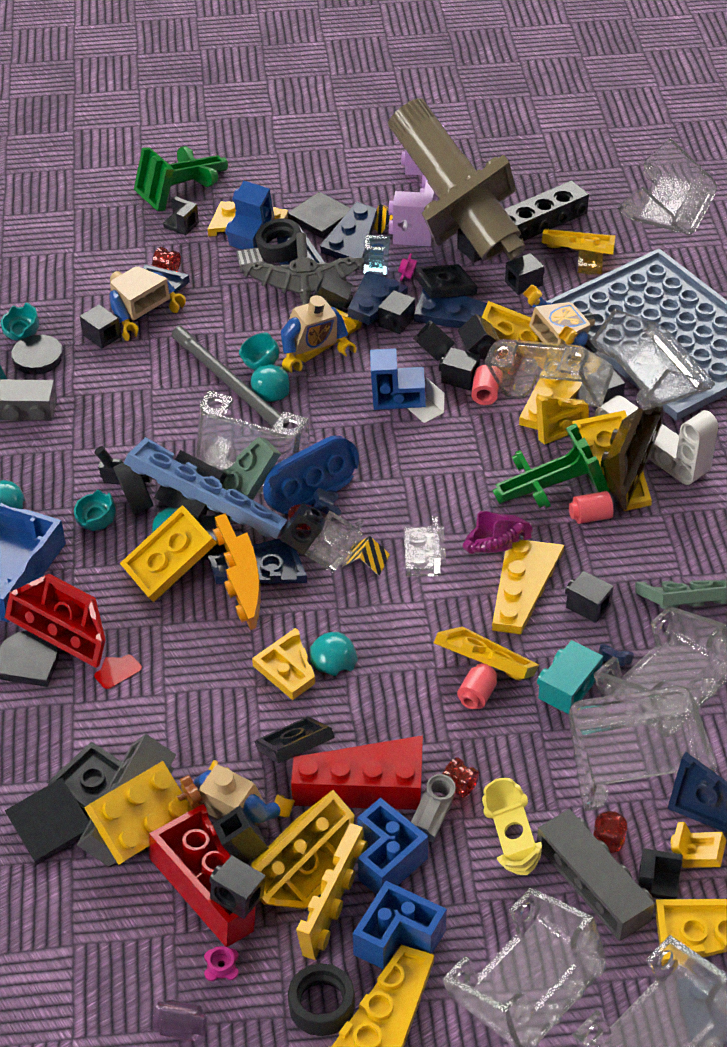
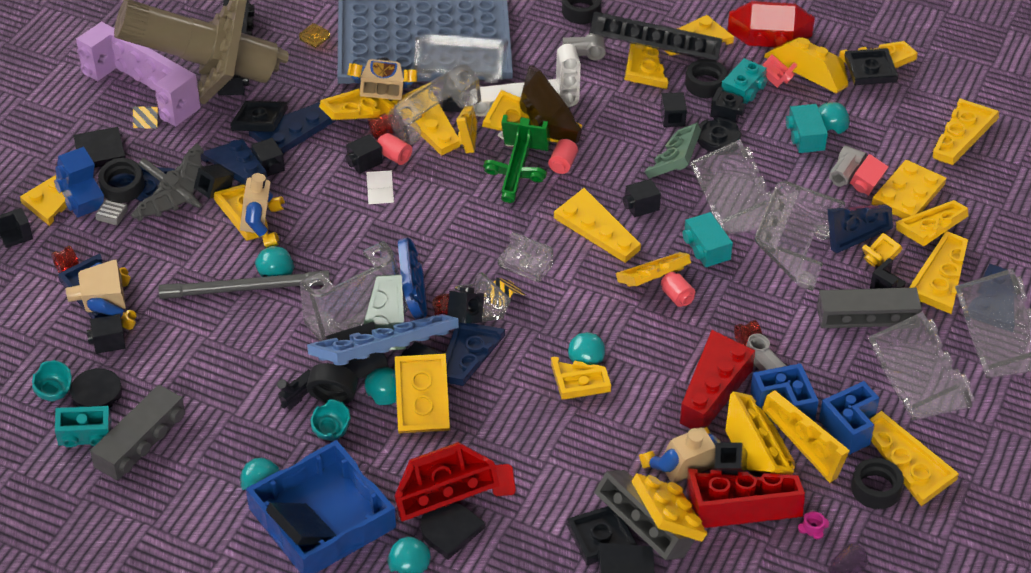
camera: 60 degrees left, 0 degrees up
(190, 792) = (675, 471): dark orange piece -> none
(237, 886) = (786, 471): black brick -> none
(242, 573) = (488, 359): light orange slope -> none
(259, 351) = (240, 250): teal hair -> none
(294, 739) = (657, 401): black tile -> none
(326, 501) = (436, 289): dark blue piece -> none
(350, 233) = (148, 140): wing -> none
(376, 254) = (195, 131): clear light blue brick -> none
(393, 385) = (351, 192): blue brick -> none
(407, 267) = (222, 128): dark pink plate -> none
(434, 340) = (318, 151): black panel -> none
(478, 336) = (353, 123): black brick -> none
(496, 532) = (546, 204): magenta piece -> none
(505, 804) = (789, 325): light yellow piece -> none
(524, 272) = (294, 73): black brick -> none
(579, 241) = (293, 24): yellow wing -> none
(608, 652) = (702, 209): dark blue piece -> none
(613, 824) = (841, 281): clear red wheel -> none

